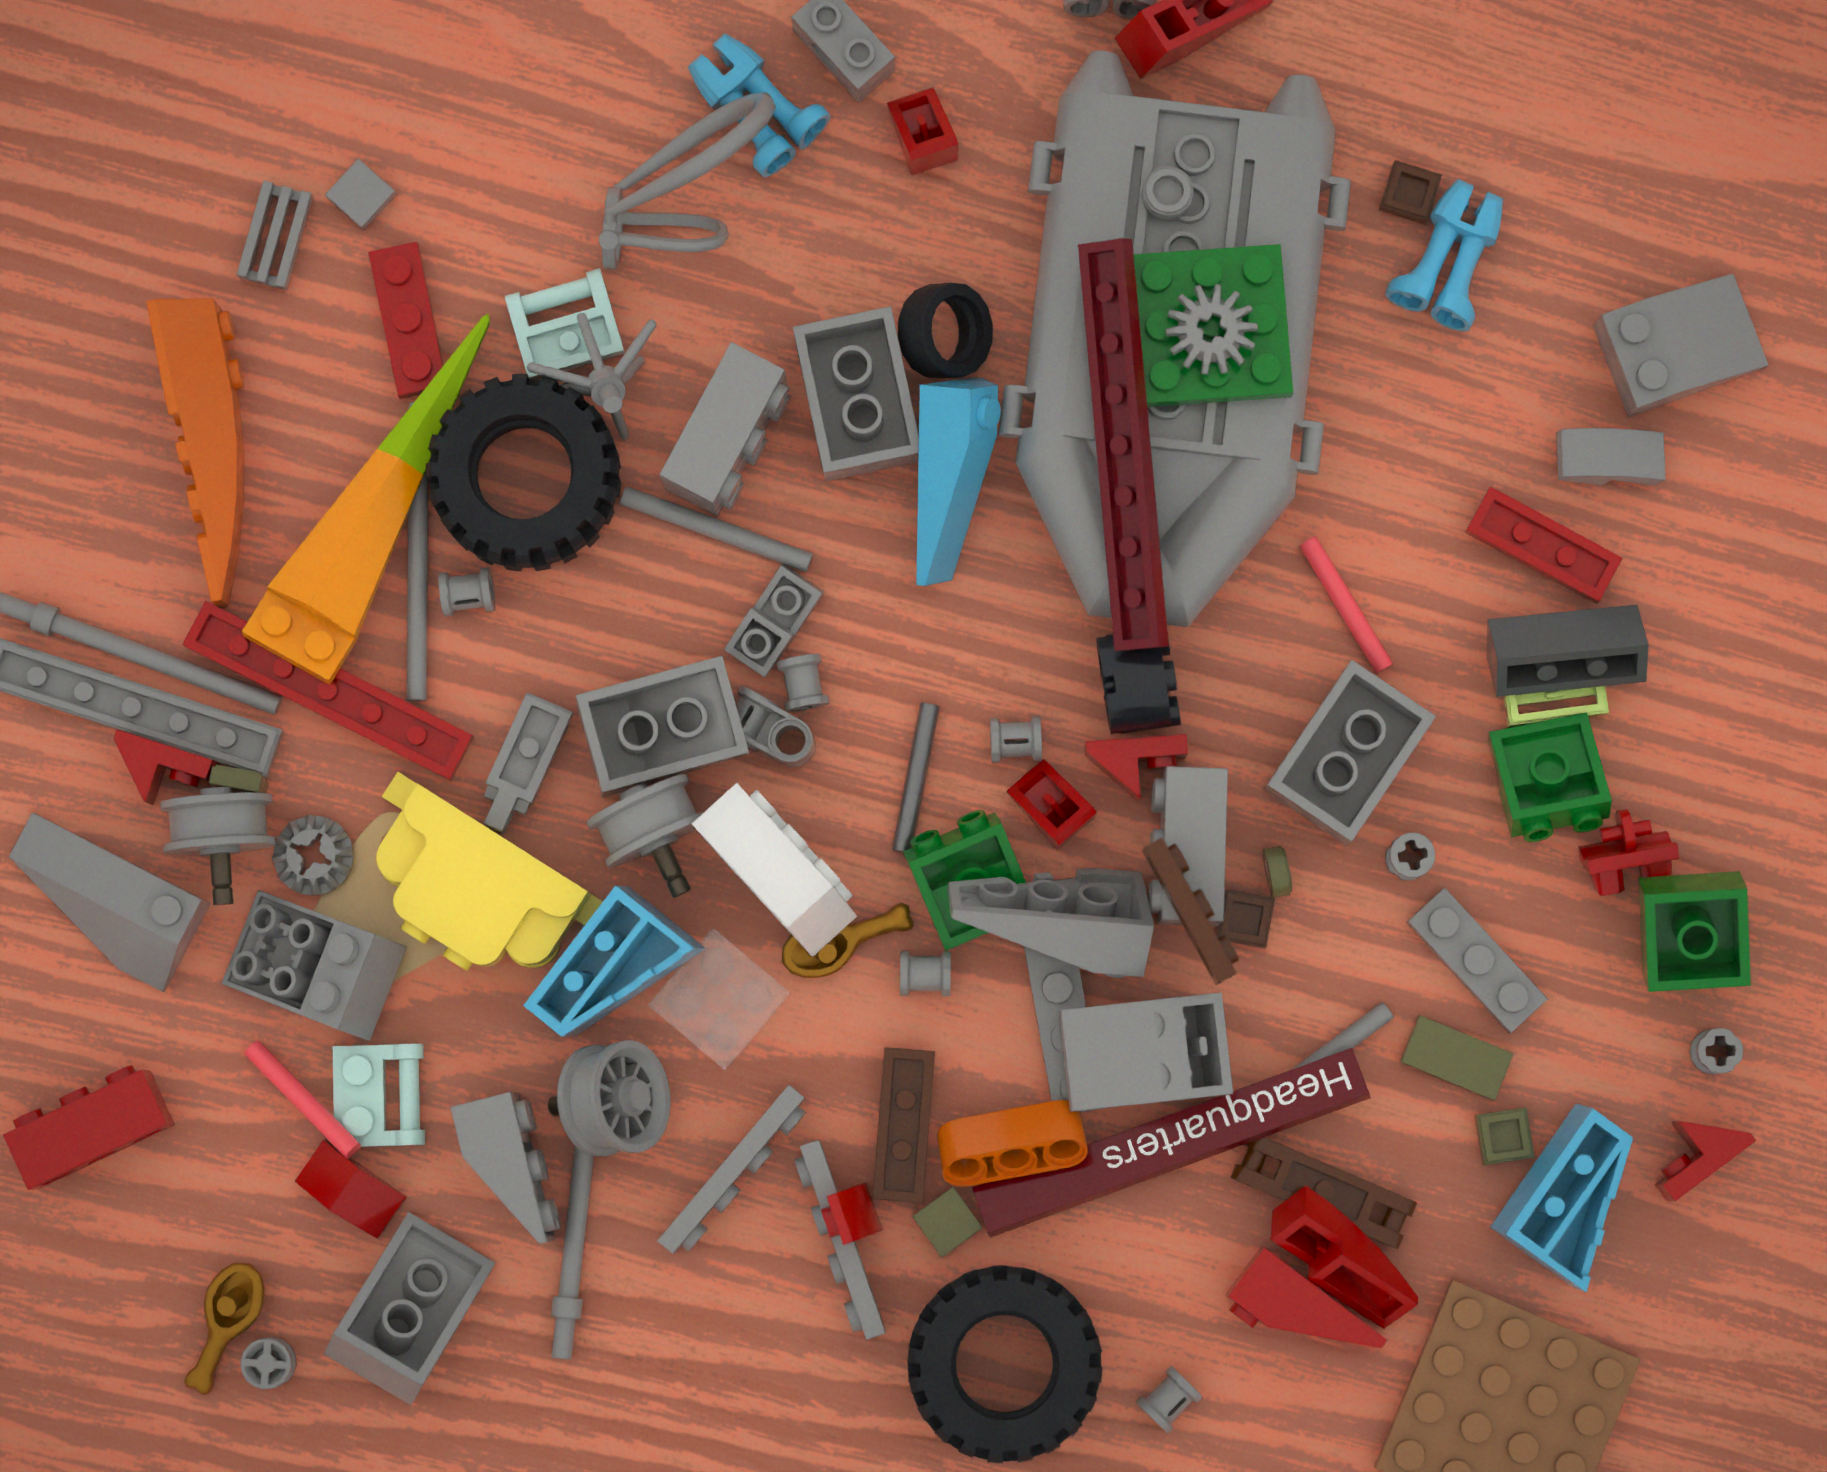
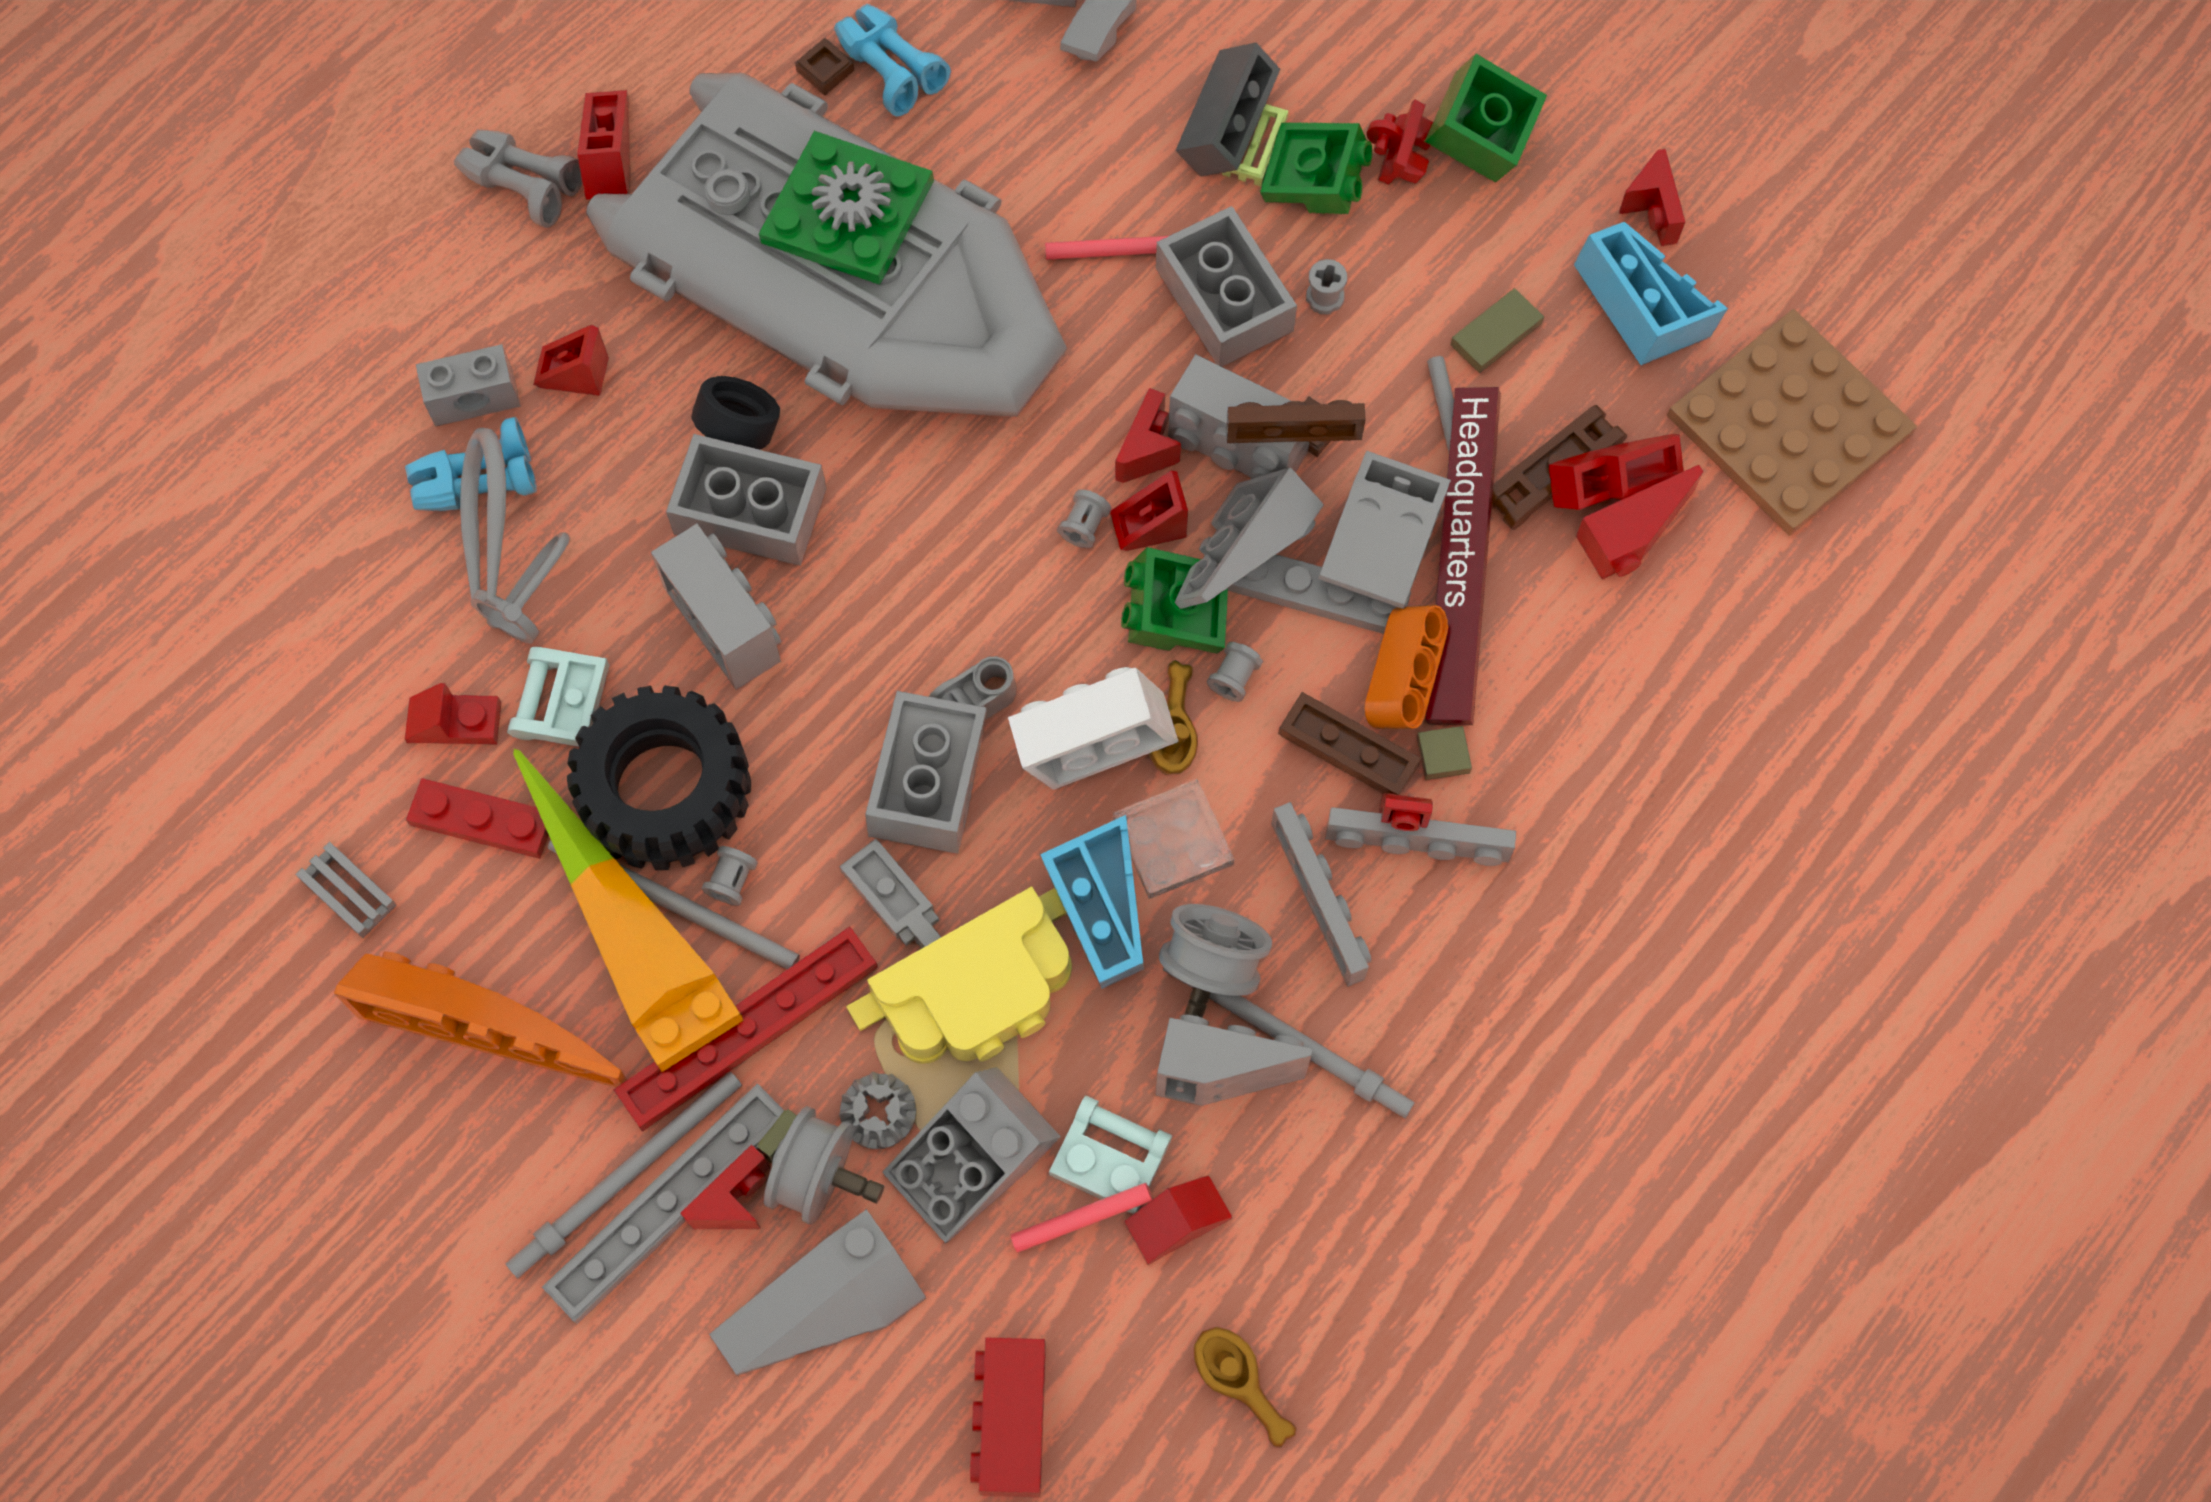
camera: 65 degrees left, 15 degrees down
(259, 1362) = (1300, 1352): light grey wheel -> none
(360, 194) = (355, 805): light grey tile -> none
(409, 1308) = (1309, 1216): light grey slope -> none
(493, 235) = (452, 719): none -> red slope
(604, 382) = (624, 673): light grey plant -> none
(647, 824) = (1002, 814): light grey wheel -> none
(716, 529) = (792, 661): light grey bar -> none
(774, 620) = (888, 653): light grey slope -> none
(802, 682) = (950, 652): light grey bush -> none
(915, 776) = (1073, 609): flat silver bar -> none
(954, 450) = (833, 440): medium azure wedge -> none
(1017, 1433) = (1602, 701): black tyre -> none
(1123, 444) = (903, 300): dark red plate -> none
(1137, 687) = (1088, 403): black brick -> none
(1169, 1399) = (1669, 651): light grey bush -> none
(1277, 871) = (1289, 382): olive tile -> none
(1477, 960) = (1429, 283): light grey plate -> none
(1504, 1136) = (1574, 326): olive tile -> none
(1543, 545) = (1139, 95): red plate -> none
(1724, 1038) = (1583, 148): light grey bush -> none

